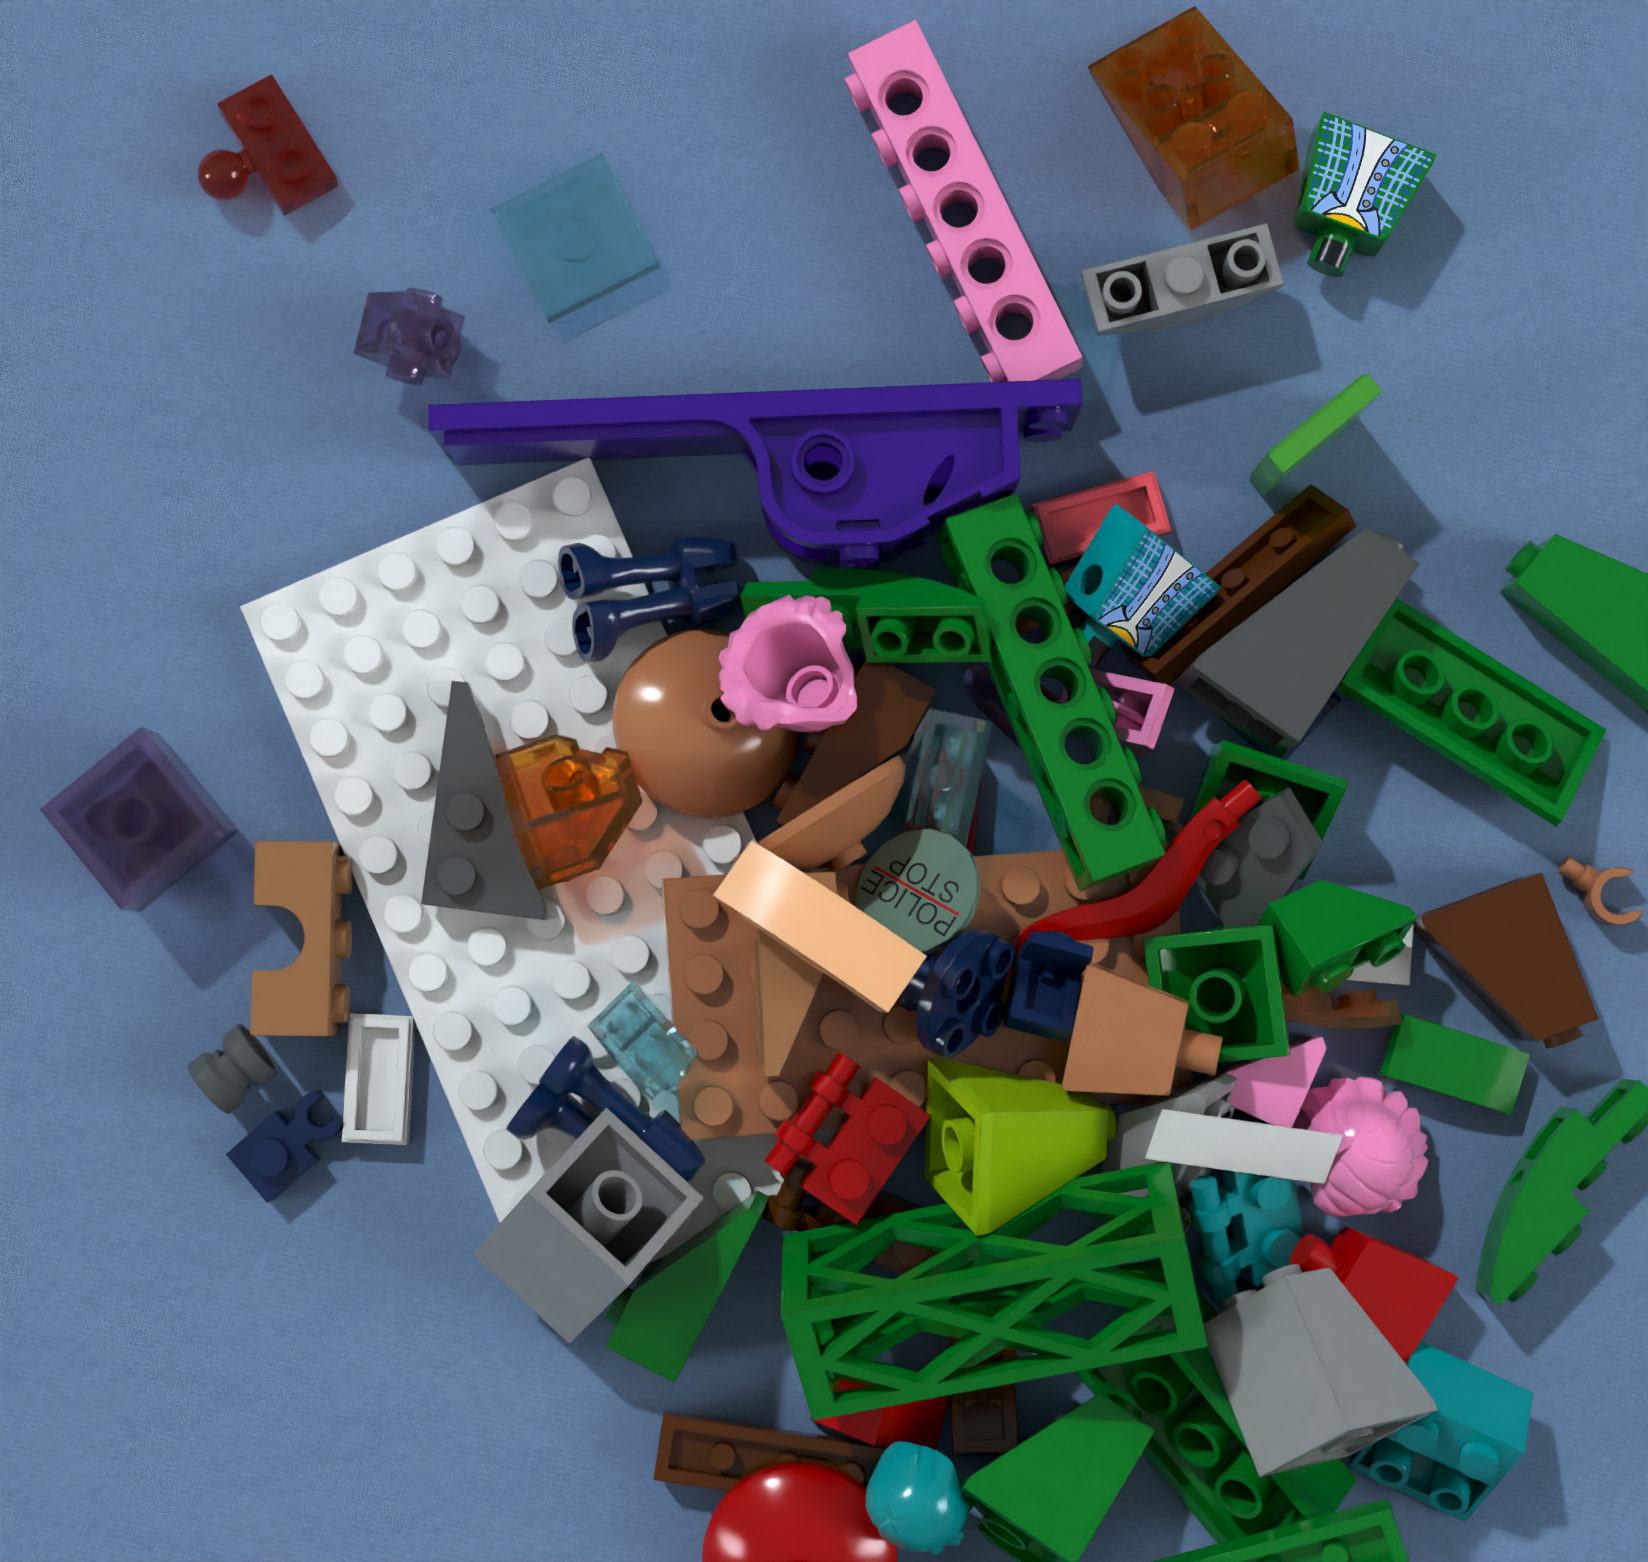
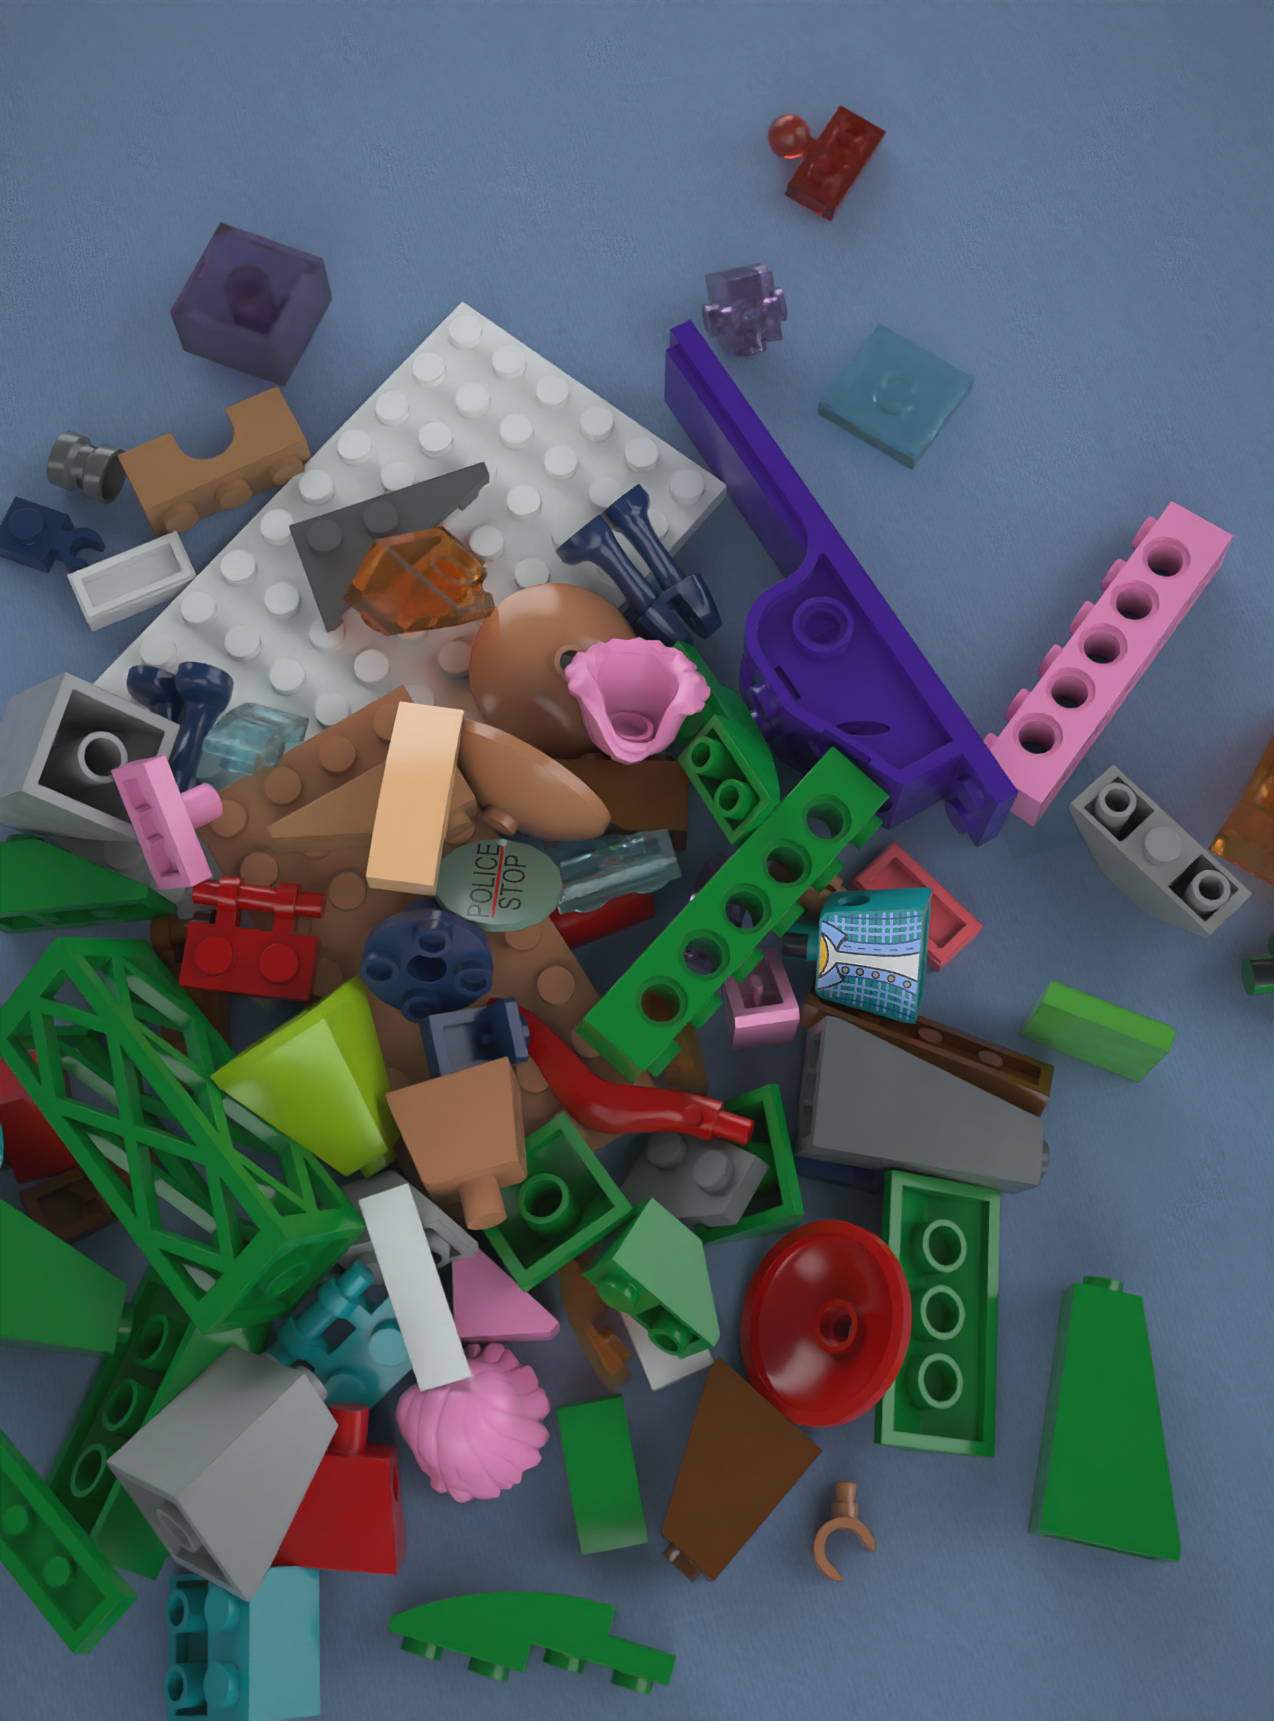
camera: 60 degrees right, 15 degrees down
(704, 1165) = (167, 820): none -> bright pink tile
(1436, 840) = (801, 1317): none -> red dish

